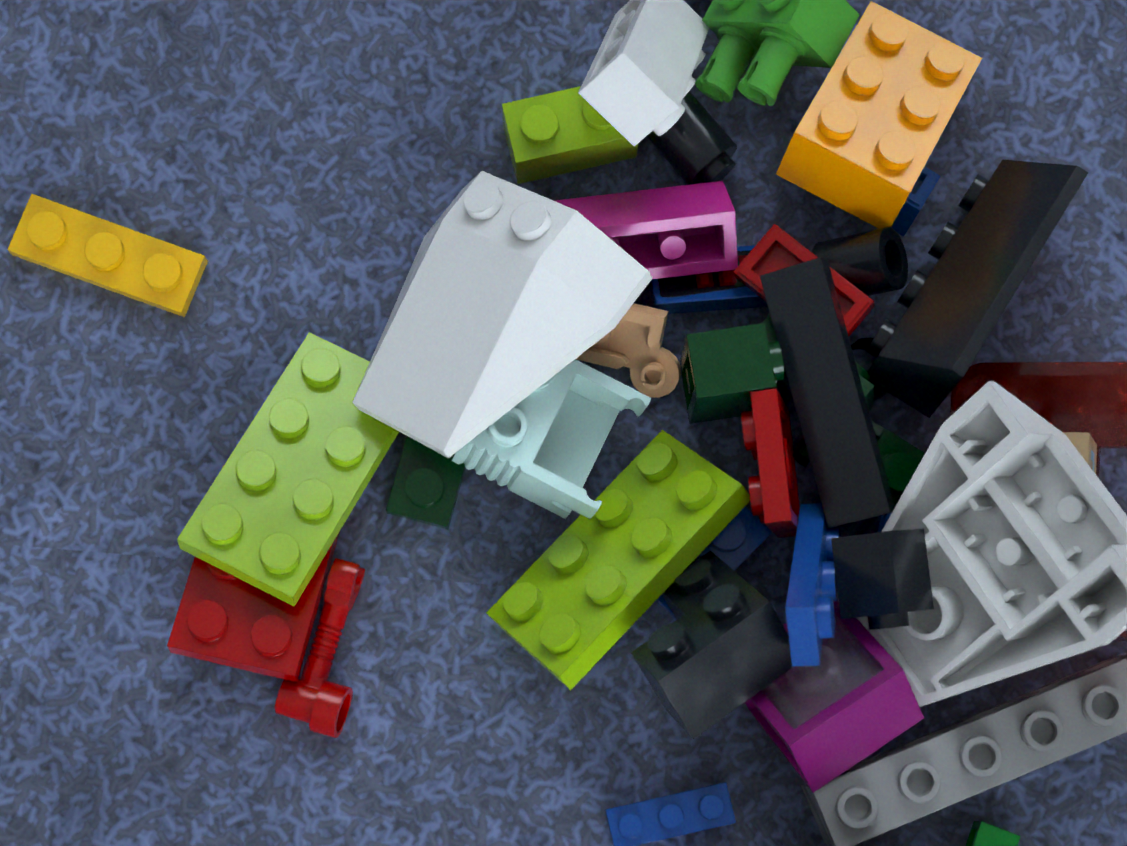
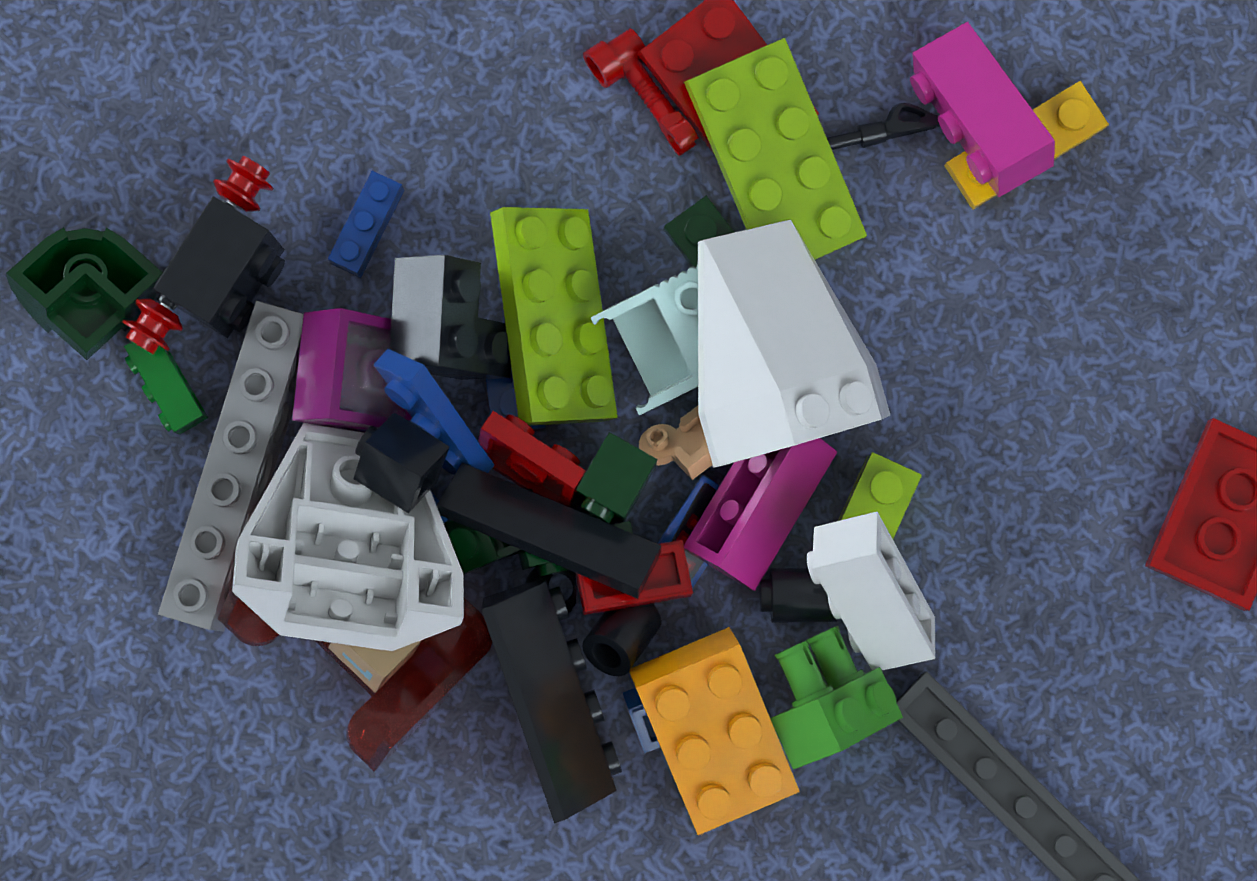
camera: 130 degrees right, 5 degrees up
(107, 309) = (982, 110): none -> dark pink brick
(197, 398) = (879, 132): none -> black hand

